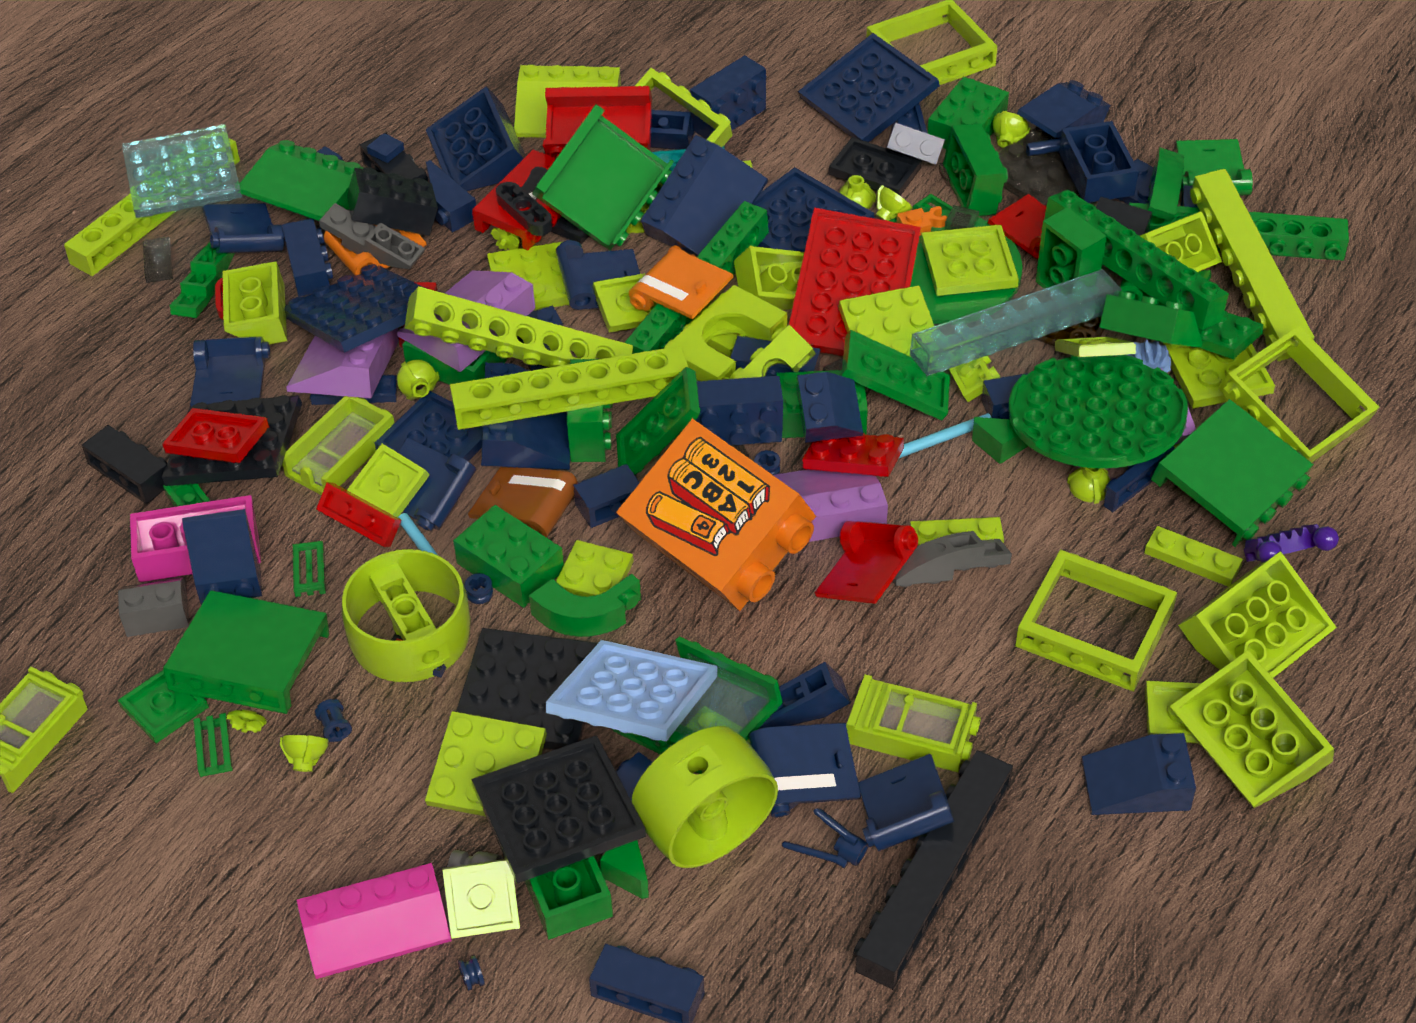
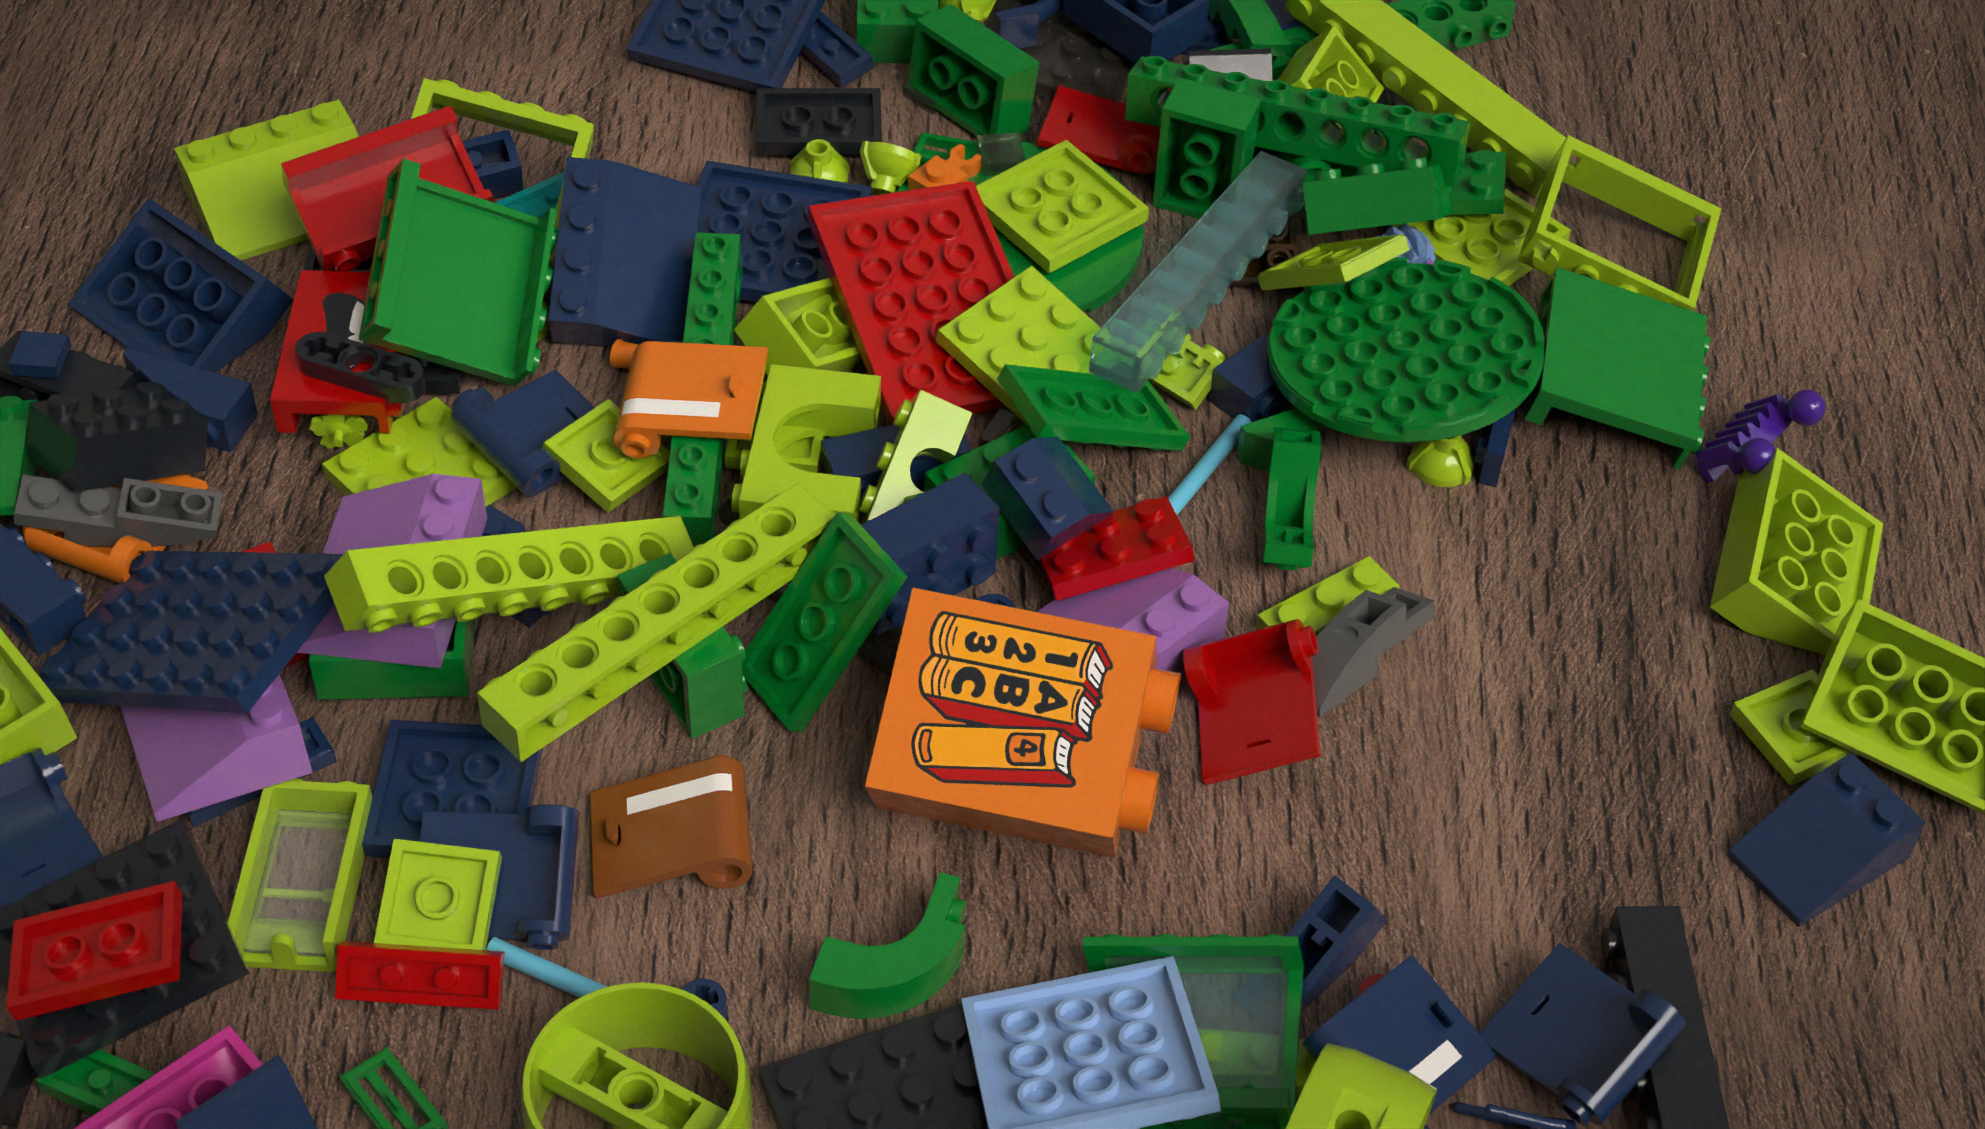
camera: 35 degrees left, 0 degrees up
(414, 374) = (362, 711): lime piece -> none
(508, 553) = (719, 927): green brick -> none
(527, 441) = (612, 746): dark blue slope -> none
(593, 569) = (862, 895): lime plate -> none
(604, 494) = (800, 766): dark blue brick -> none
(734, 91) = (549, 73): dark blue brick -> none
(912, 724) = (1492, 910): lime door -> none
(915, 143) = (861, 66): brick -> none
(973, 470) = (1290, 499): none -> green arch
(1020, 151) = (1018, 25): none -> dark blue tile
(1080, 654) = (1605, 704): lime window -> none
(1193, 556) = (1645, 503): lime plate -> none

